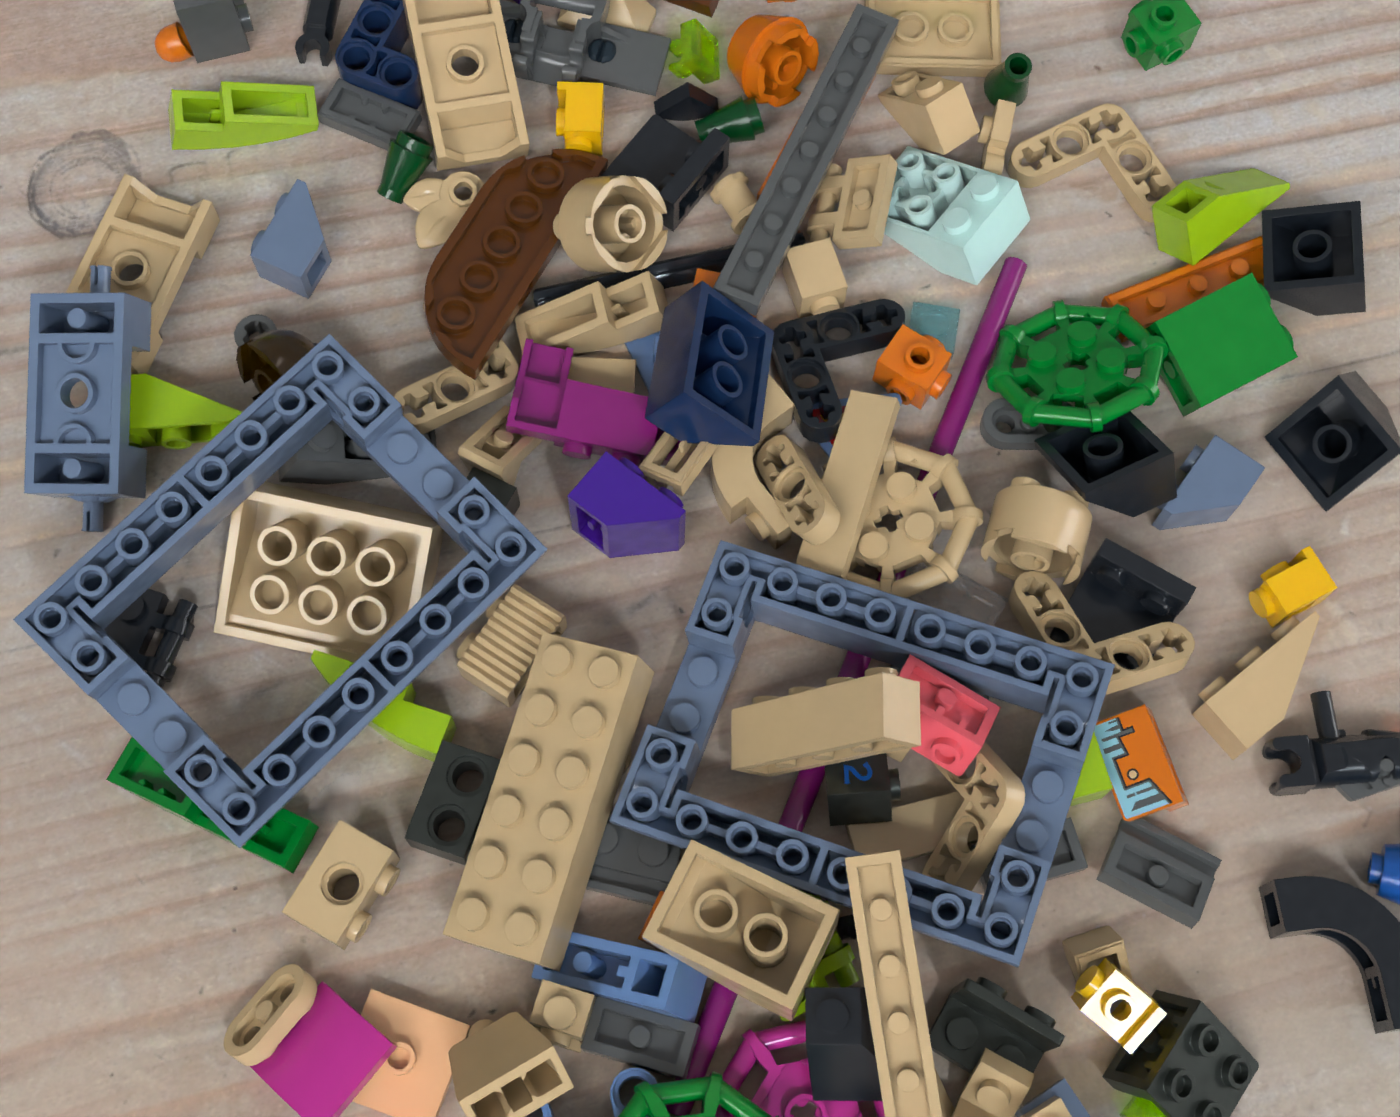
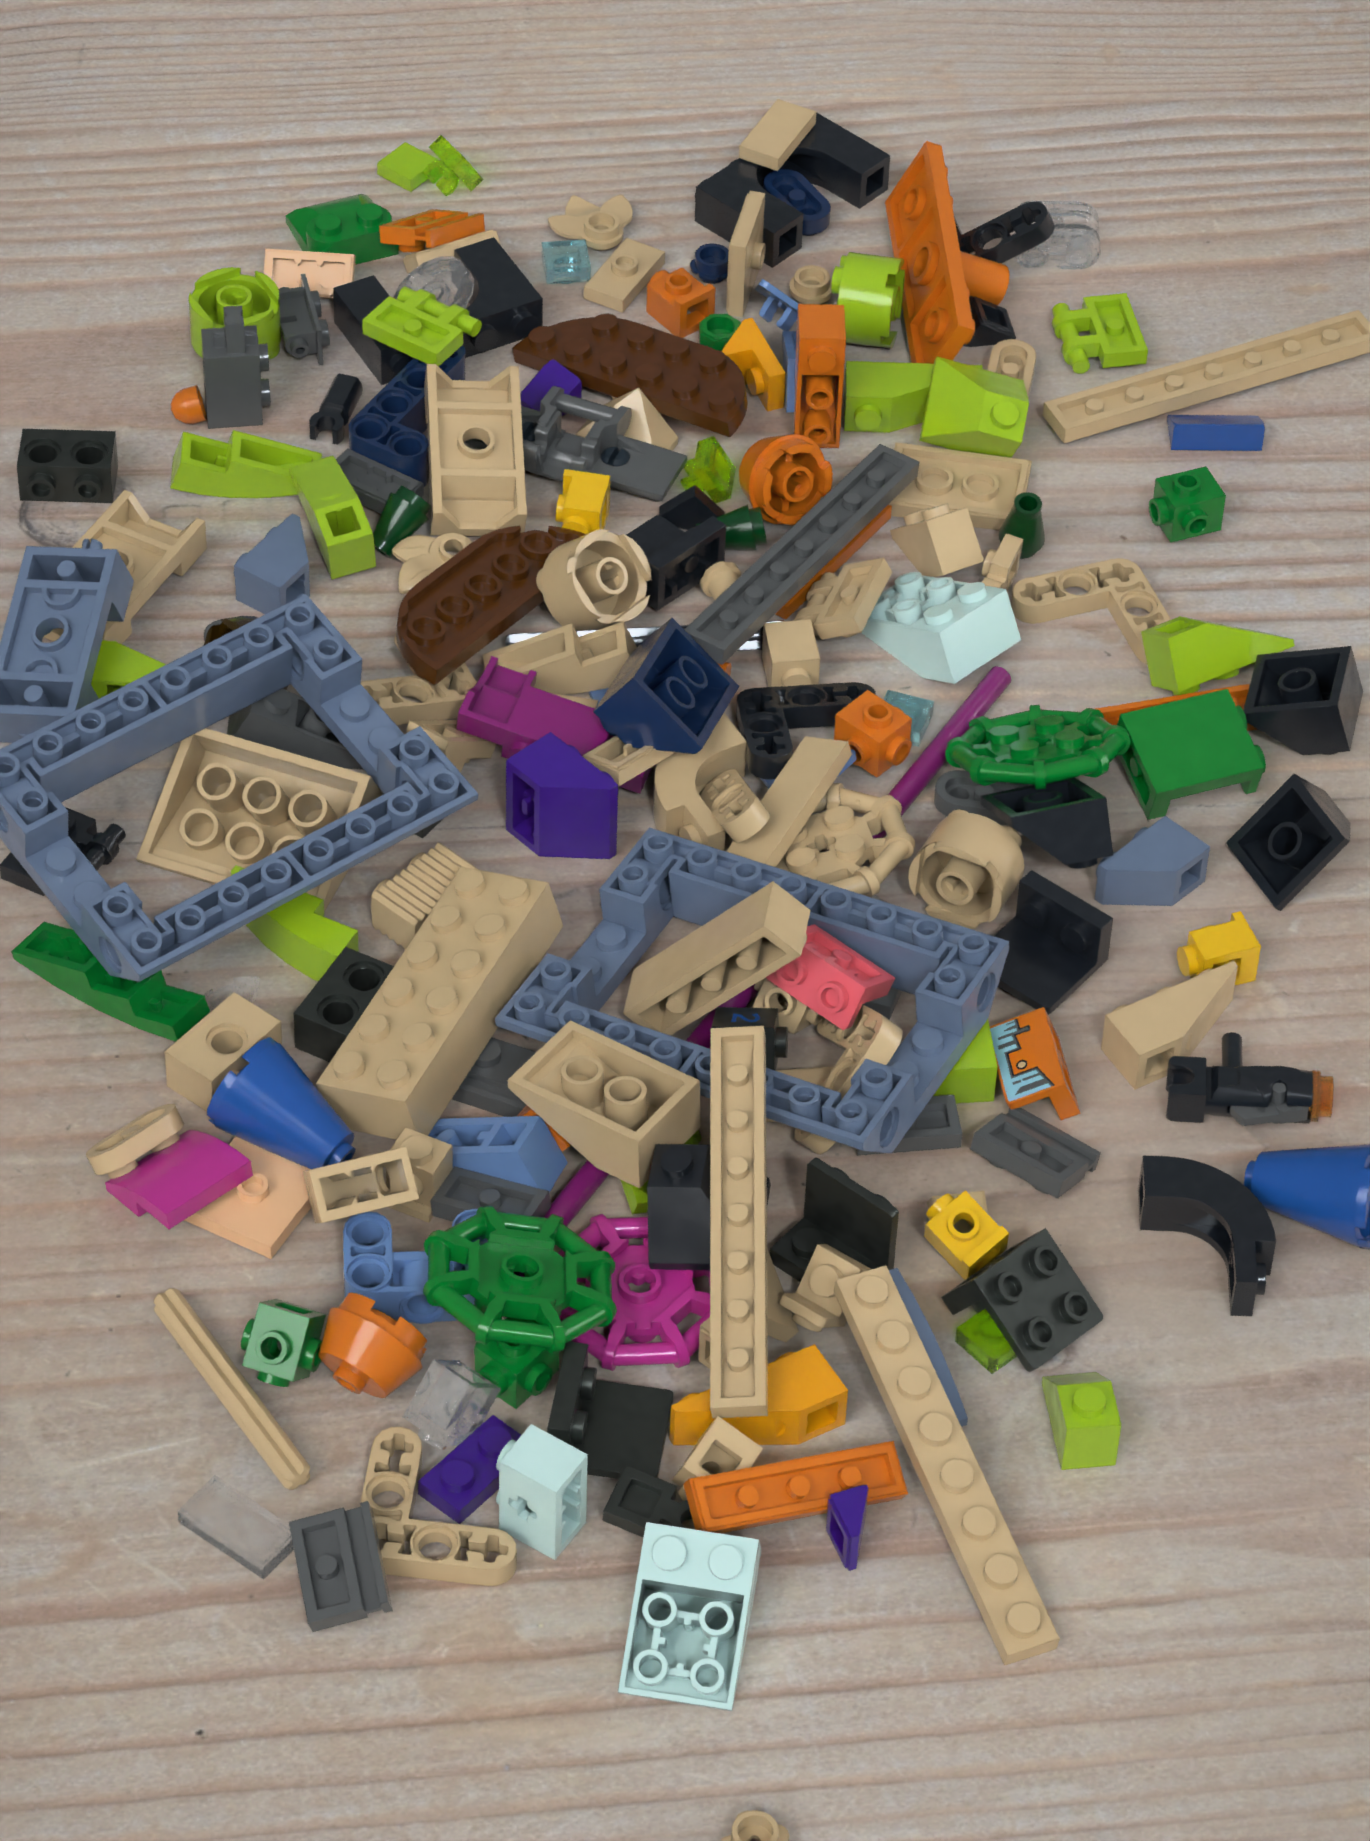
camera: 10 degrees right, 25 degrees down
(64, 132) = (67, 465): none -> pearl dark grey brick
(337, 167) = (335, 516): none -> lime slope
(415, 965) = (280, 1110): none -> blue cone
(1138, 643) = (1034, 972): tan beam -> none

